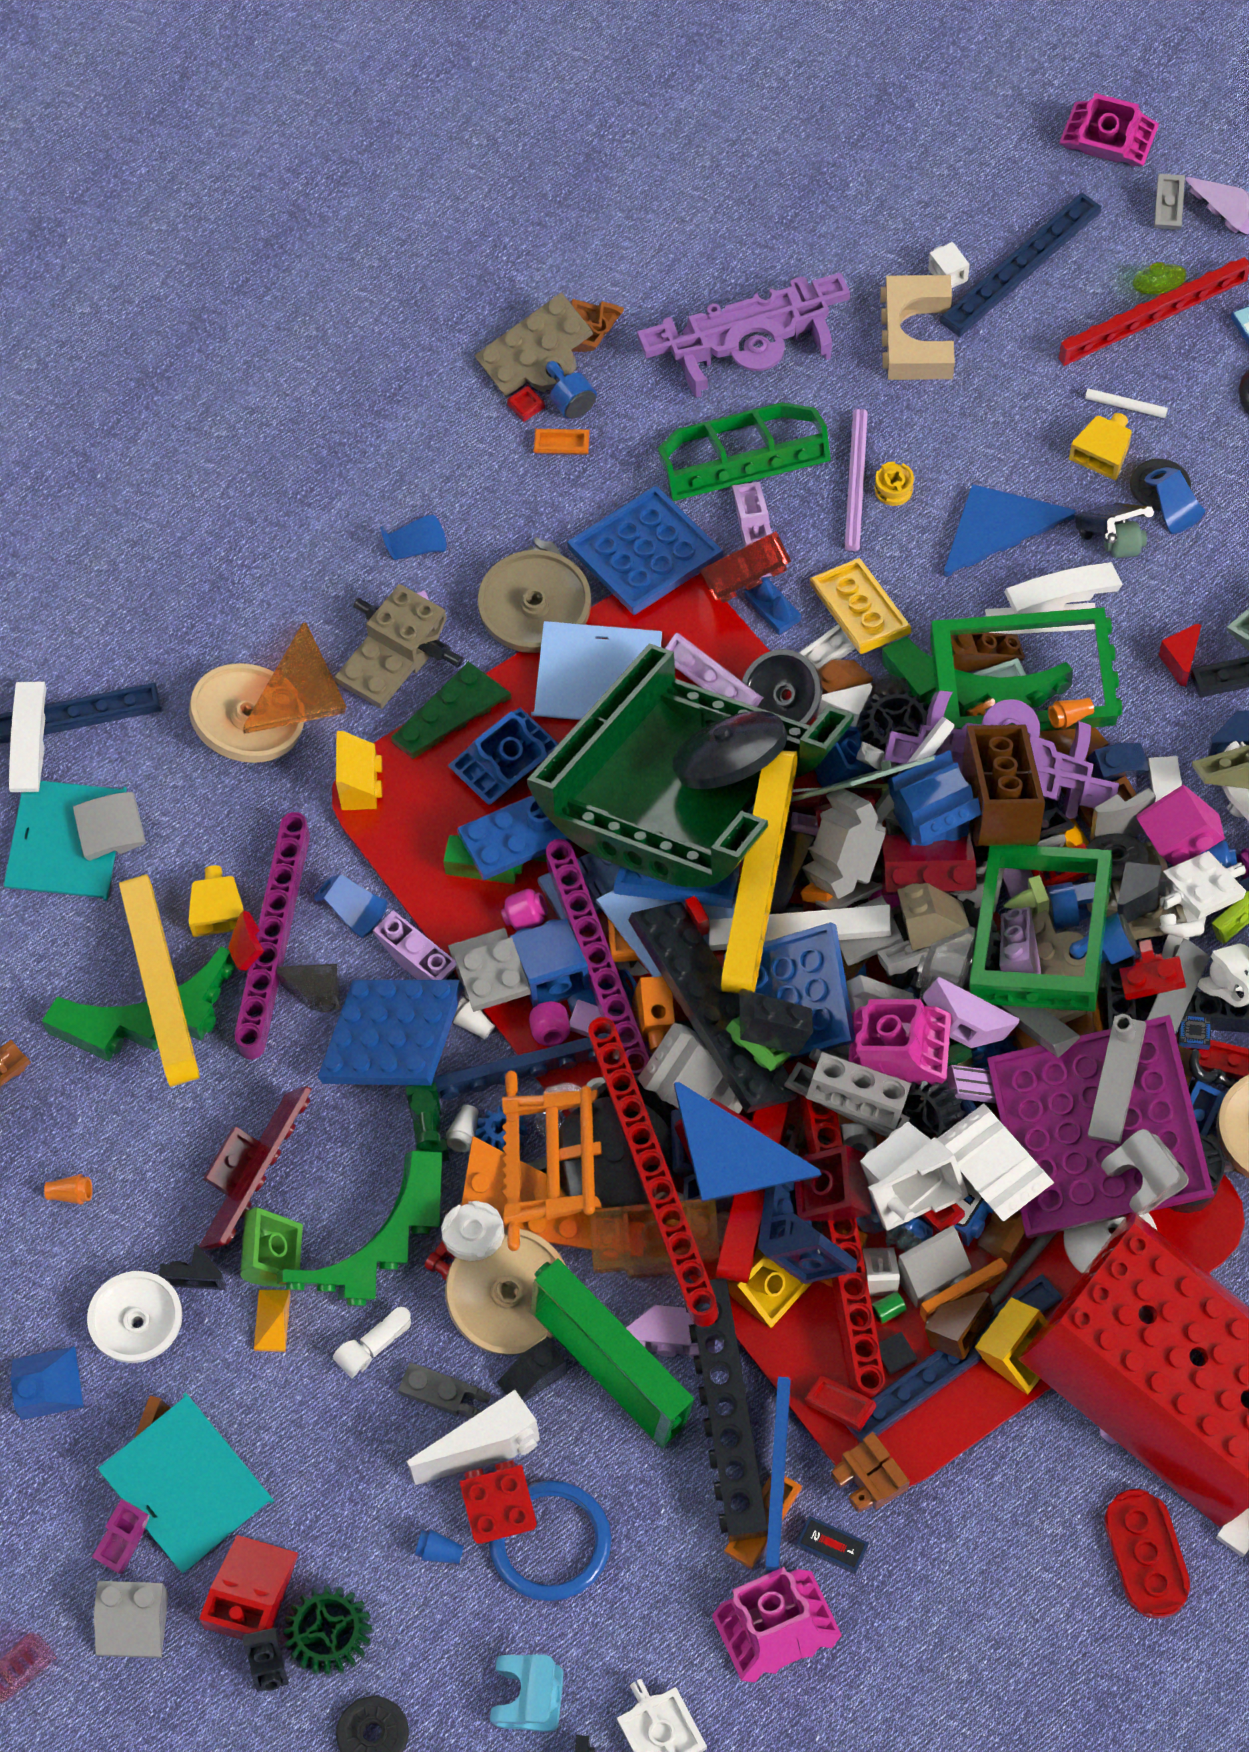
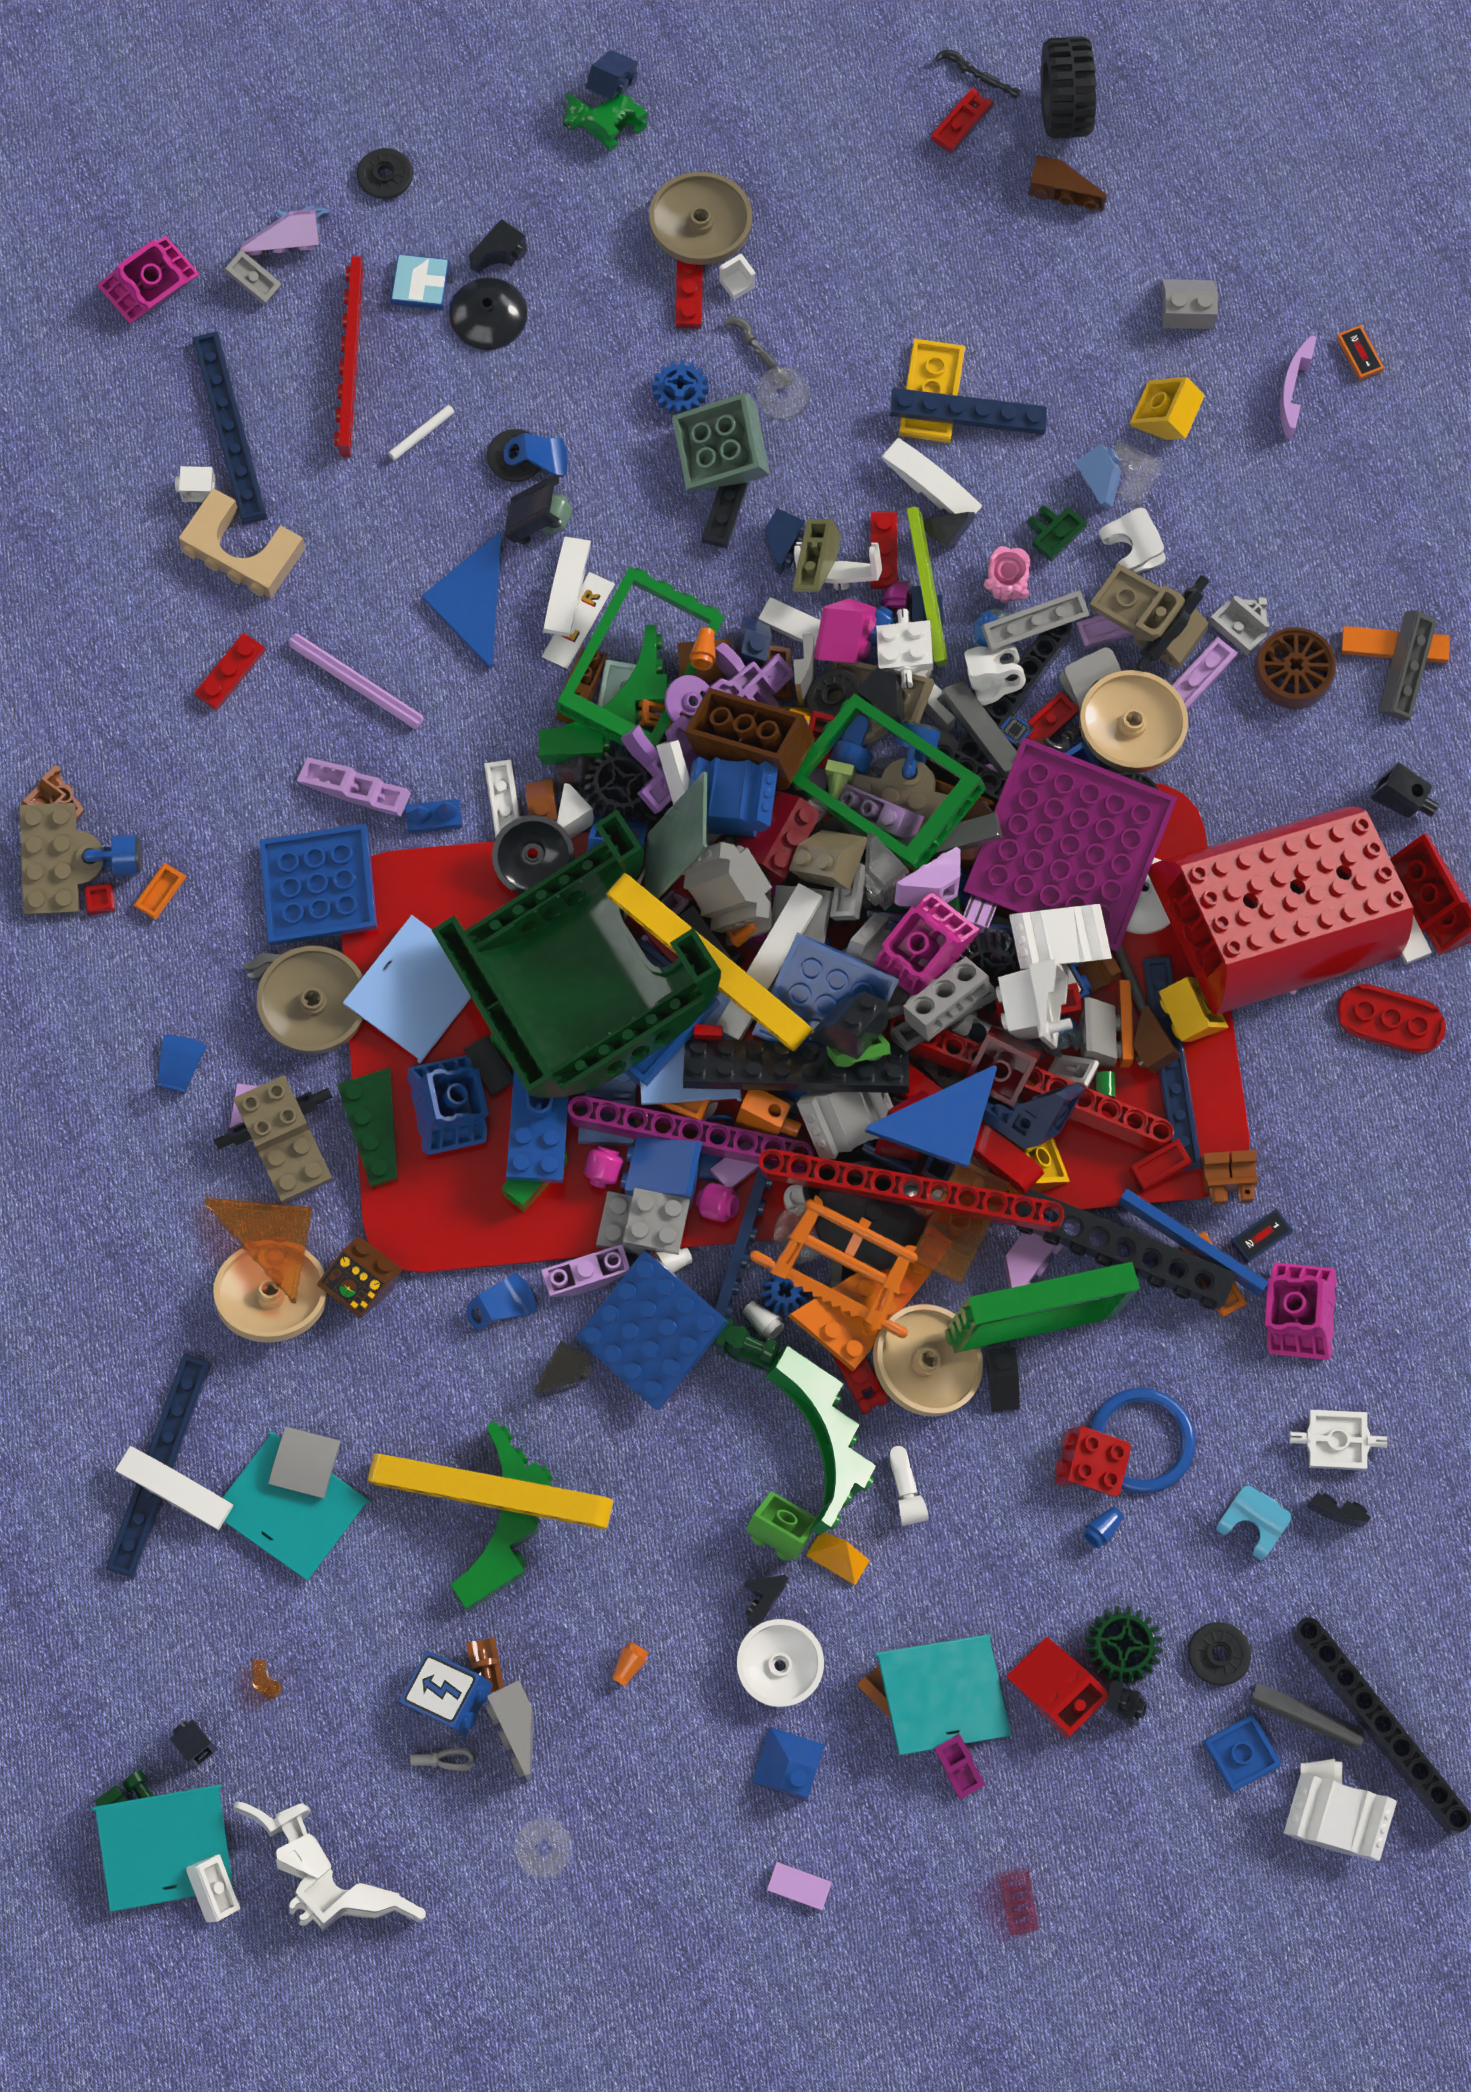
camera: 65 degrees left, 10 degrees up
(130, 1619) = (1030, 1793): light grey slope -> none
(214, 903) = (437, 1410): yellow torso -> none
(242, 1164) = (699, 1507): dark red bracket -> none
(244, 944) = (497, 1405): red slope -> none
(274, 946) = (488, 1367): magenta beam -> none
(299, 773) = (360, 1277): none -> reddish brown slope
(357, 772) = (392, 1231): yellow slope -> none
(440, 1391) = (974, 1458): dark grey hinge -> none
(473, 1231) = (872, 1357): white tile -> none
(485, 1439) = (1042, 1428): white slope -> none
(708, 672) = (475, 901): lavender tile -> none
(719, 332) = (144, 699): medium lavender piece -> none
(729, 750) = (583, 922): black dish -> none
(745, 567) = (397, 814): clear red slope -> none
(748, 465) = (289, 756): green plate -> none
(798, 384) = (229, 671): none -> red plate
(860, 606) = (483, 748): yellow tile -> none
(871, 756) = (643, 820): white slope -> none
(894, 483) = (381, 653): yellow wheel -> none
(896, 1353) = (1144, 1099): black tile -> none
(1102, 445) = (454, 473): yellow torso -> none
(1117, 1079) = (1048, 807): light grey piece -> none
(1152, 974) = (960, 730): red hinge -> none
(1157, 1164) = (1130, 822): light grey piece -> none
(1159, 278) = (322, 332): clear neon green dish -> none
(1178, 652) = (683, 537): red slope -> none
(1181, 930) = (930, 692): white arm -> none

